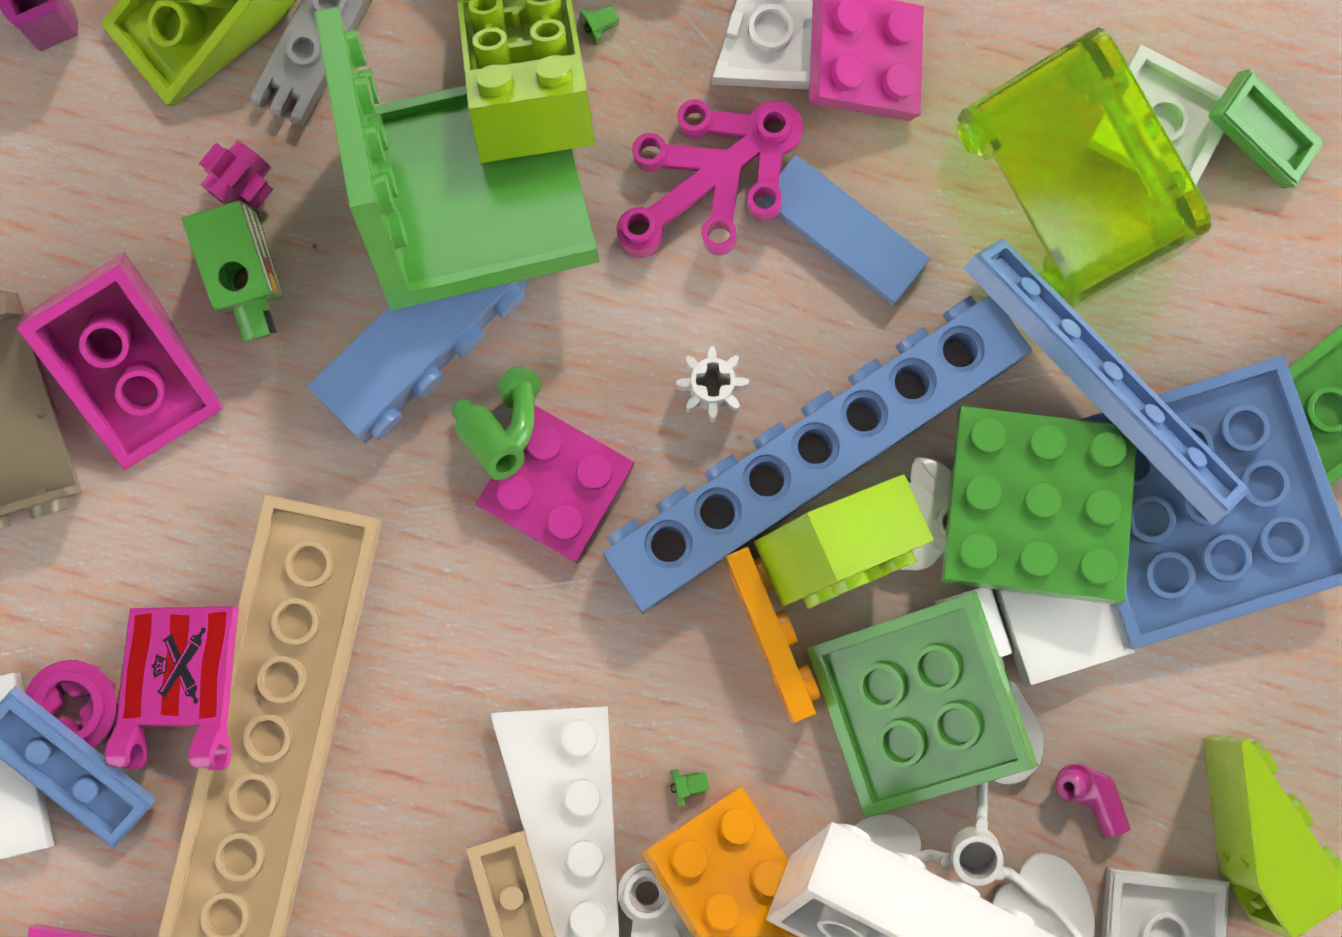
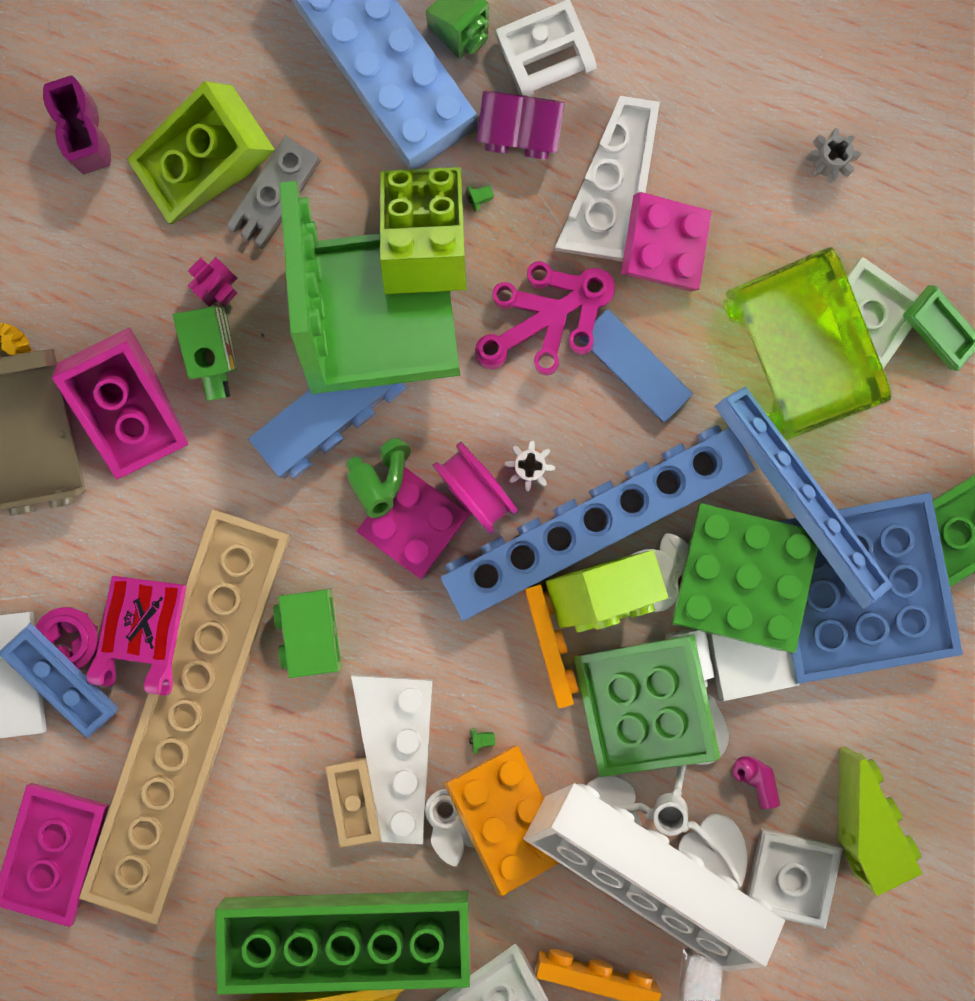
camera: 10 degrees right, 5 degrees up
(420, 656) = (308, 633): none -> bright green brick
(639, 418) = (475, 487): none -> dark pink wheel

